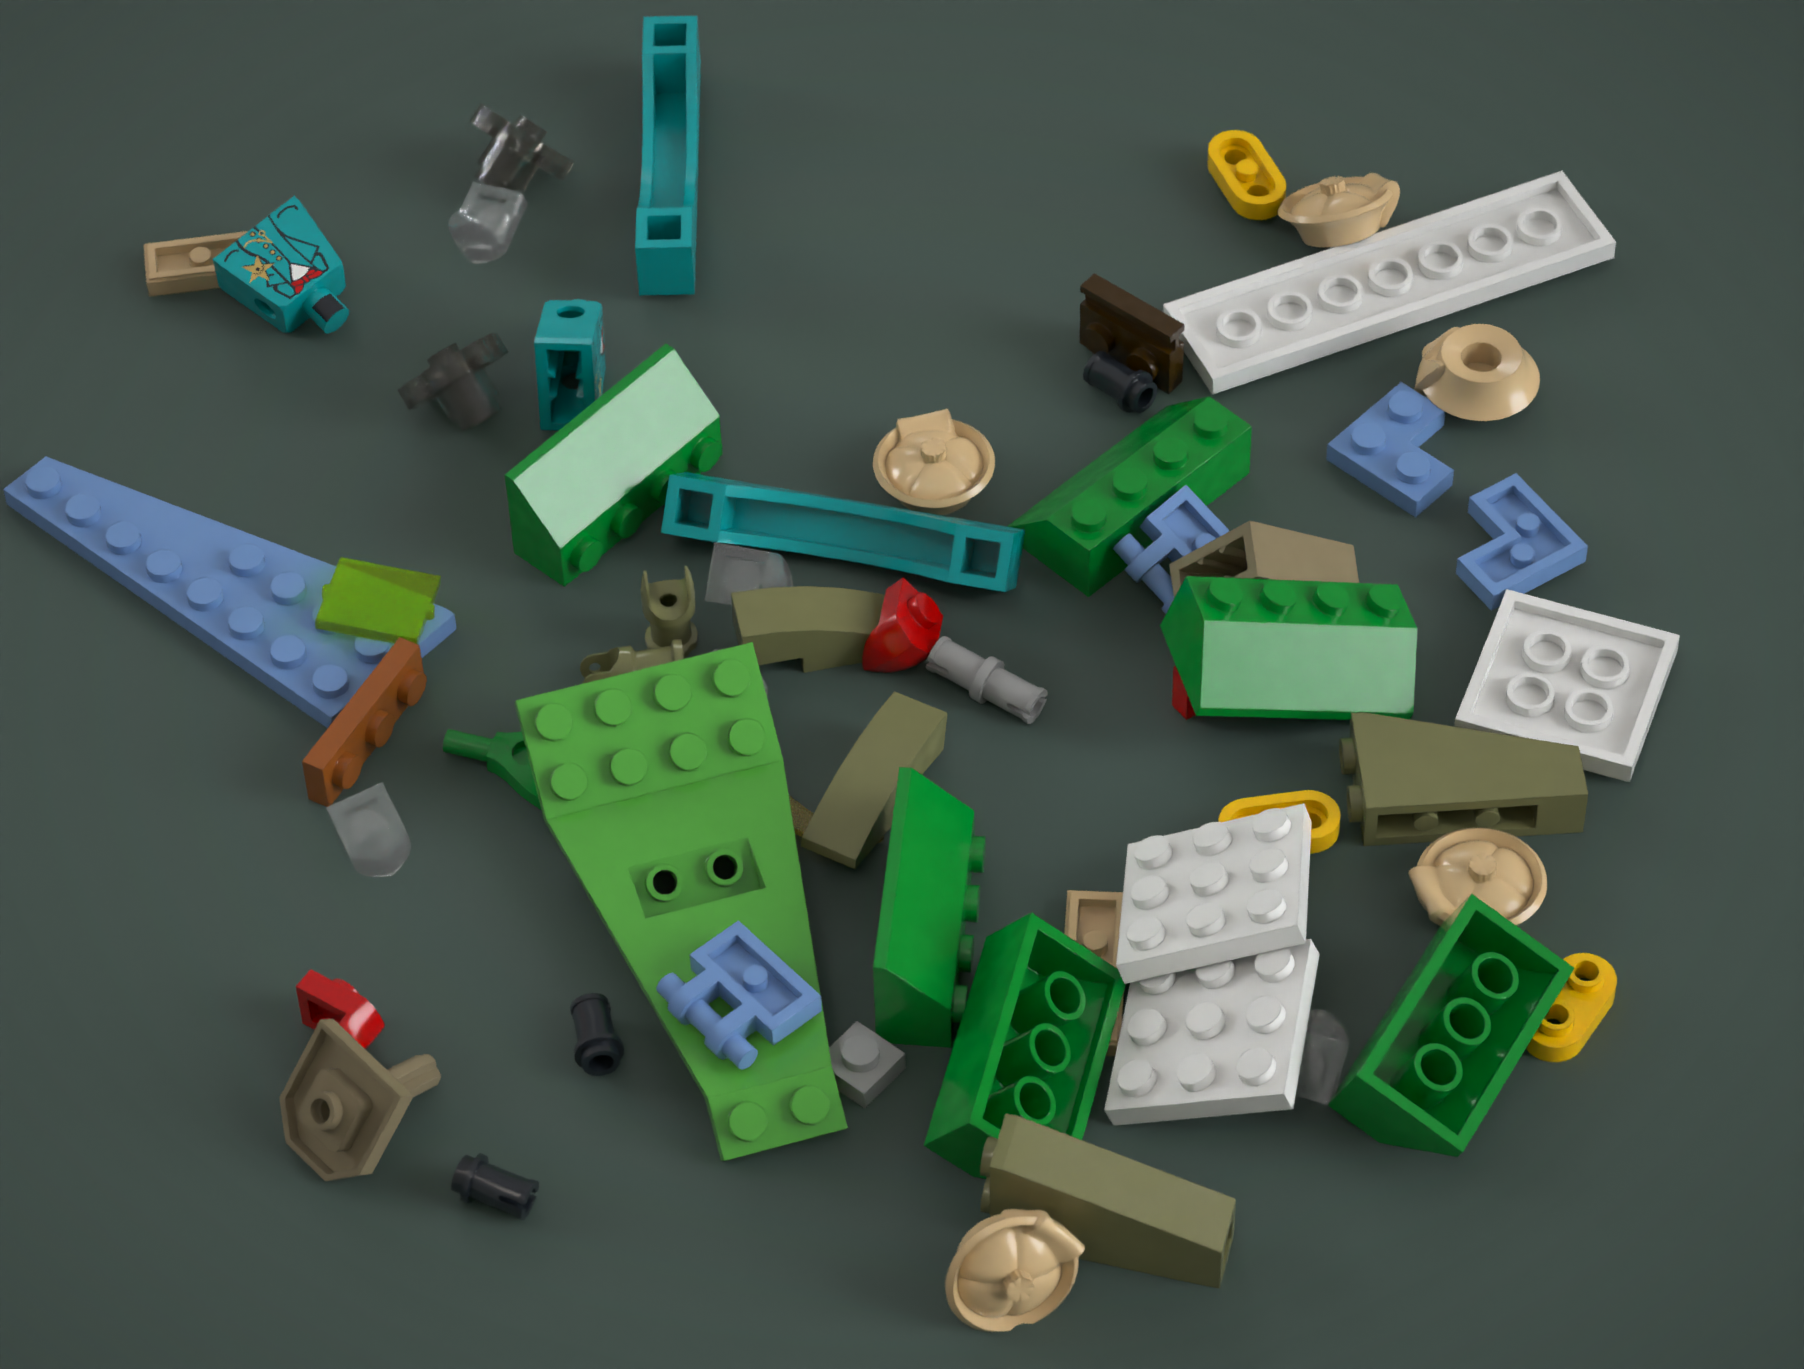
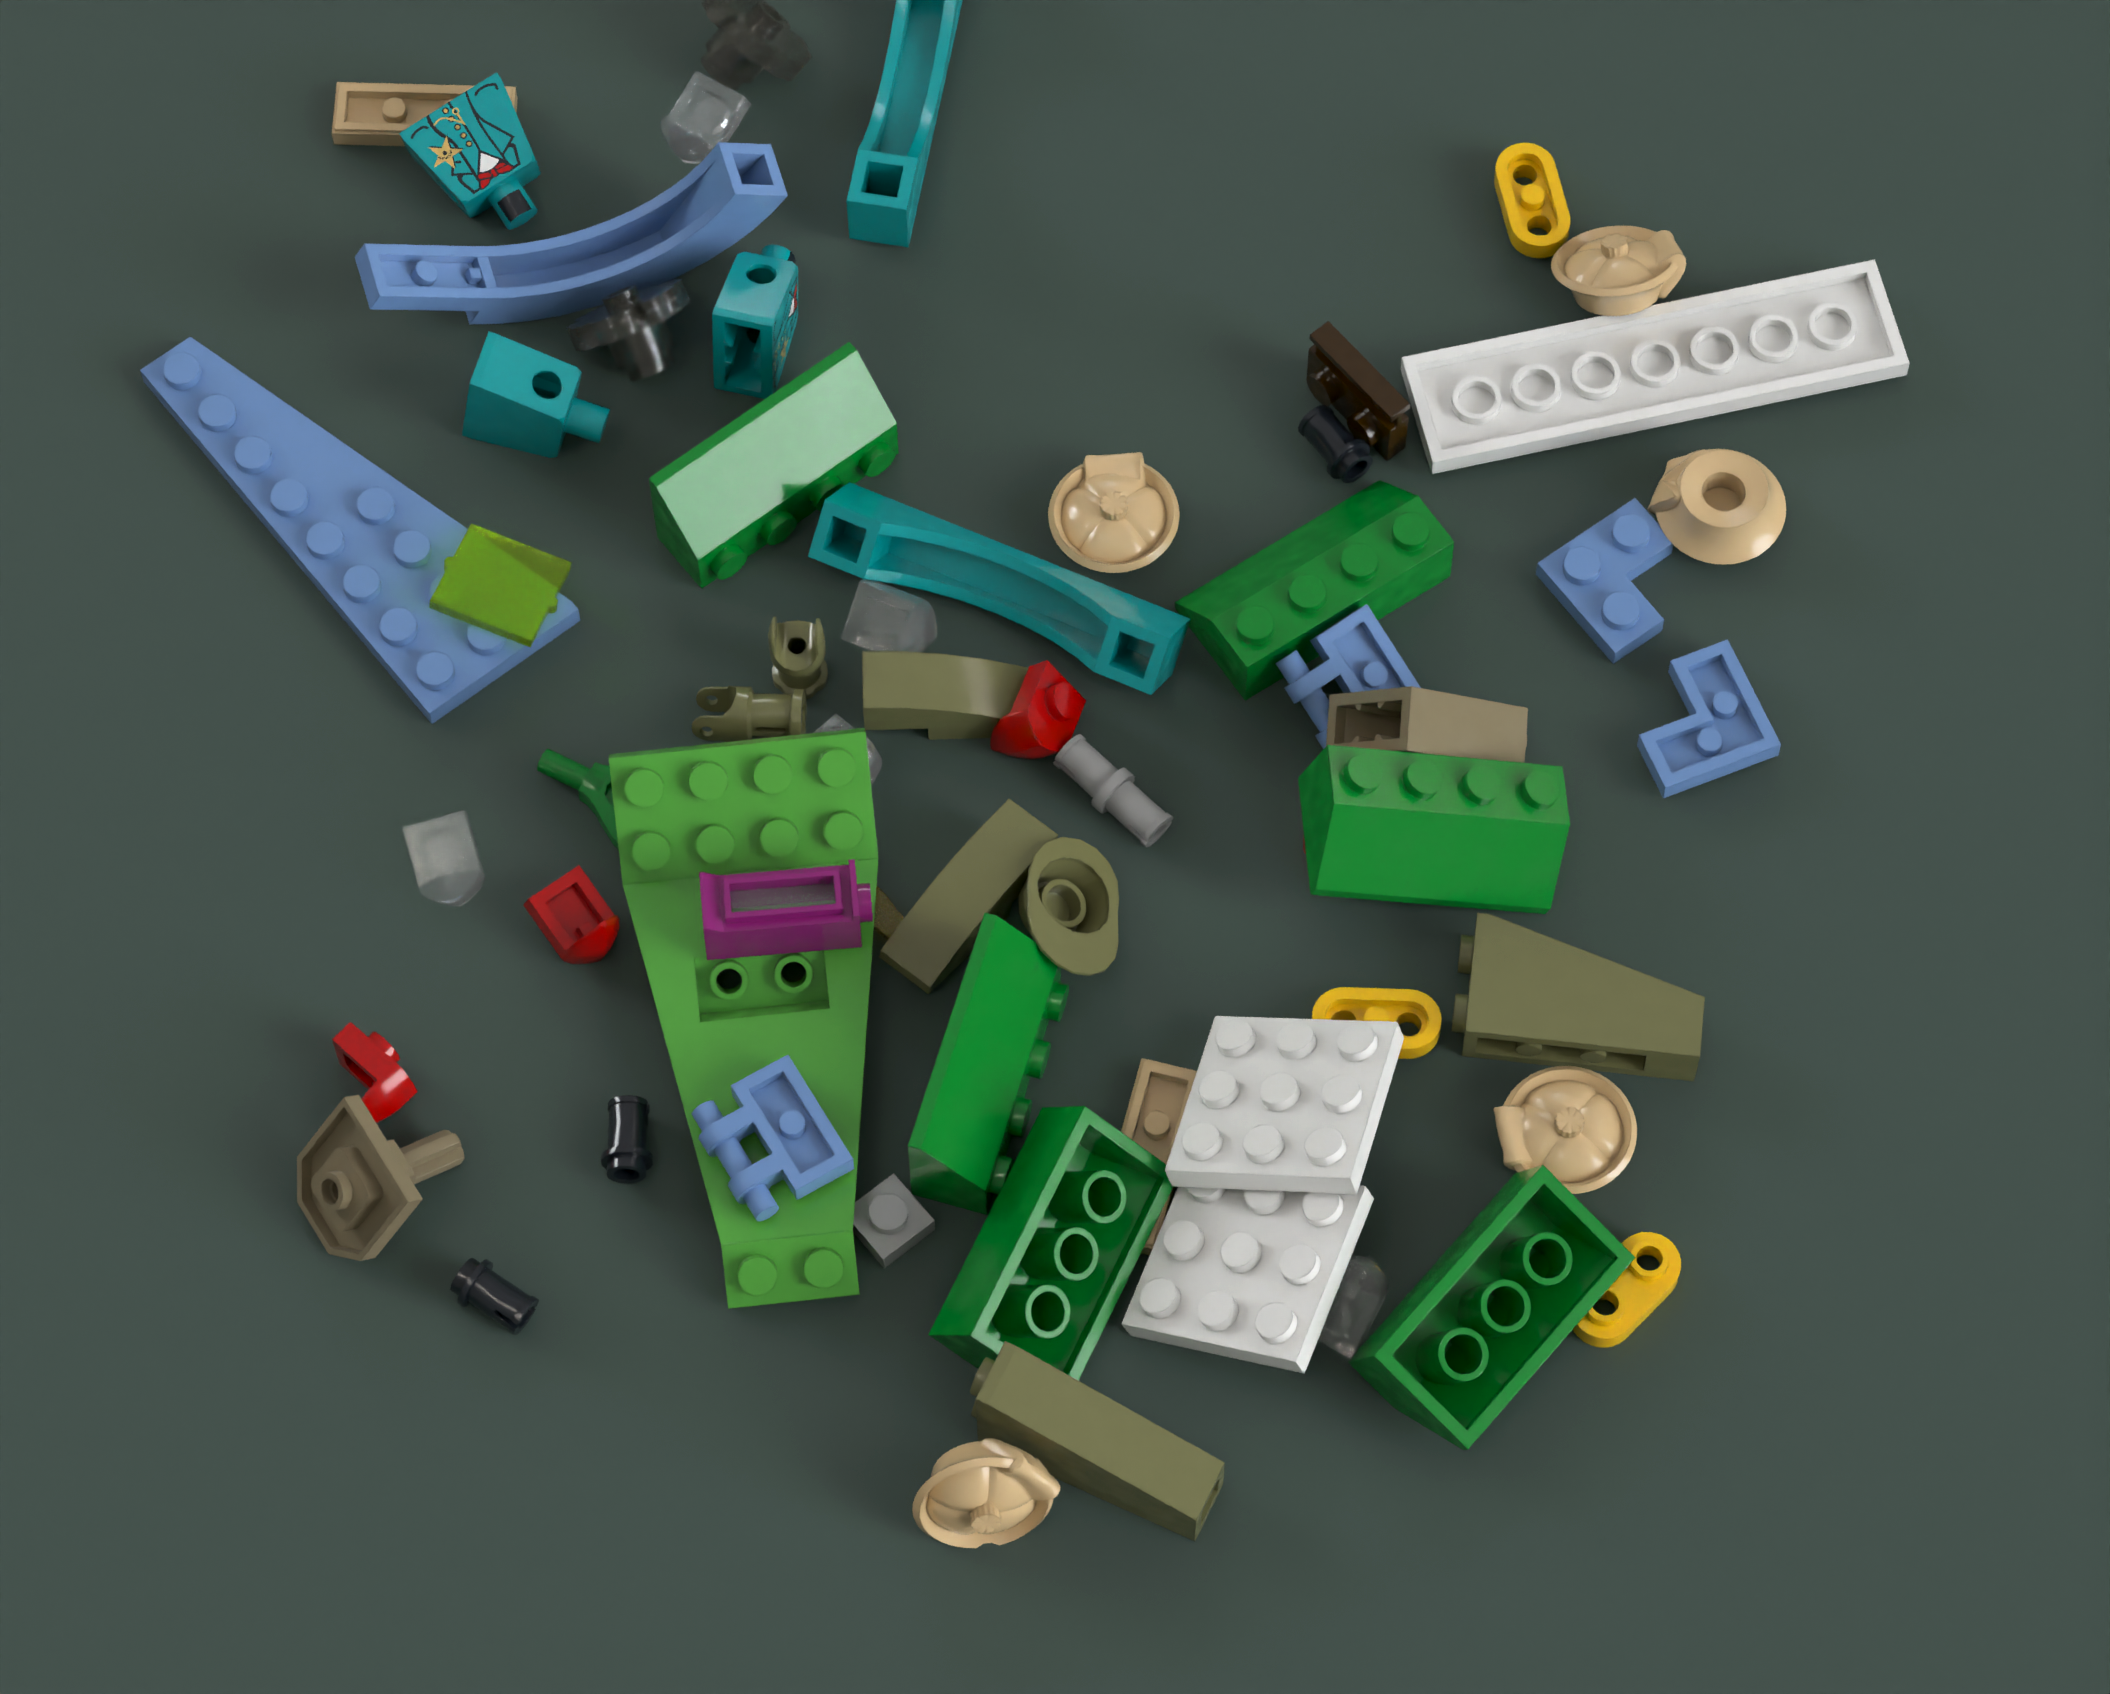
camera: 10 degrees right, 15 degrees up
(364, 723) = (462, 727): dark orange plate -> none
(372, 451) = (528, 400): none -> teal torso
(379, 358) = (575, 271): none -> medium blue arch
(505, 860) = (574, 918): none -> red plate
(706, 807) = (783, 911): none -> magenta window
(973, 766) = (1072, 906): none -> olive piece
(1570, 681) = (1718, 907): white plate -> none

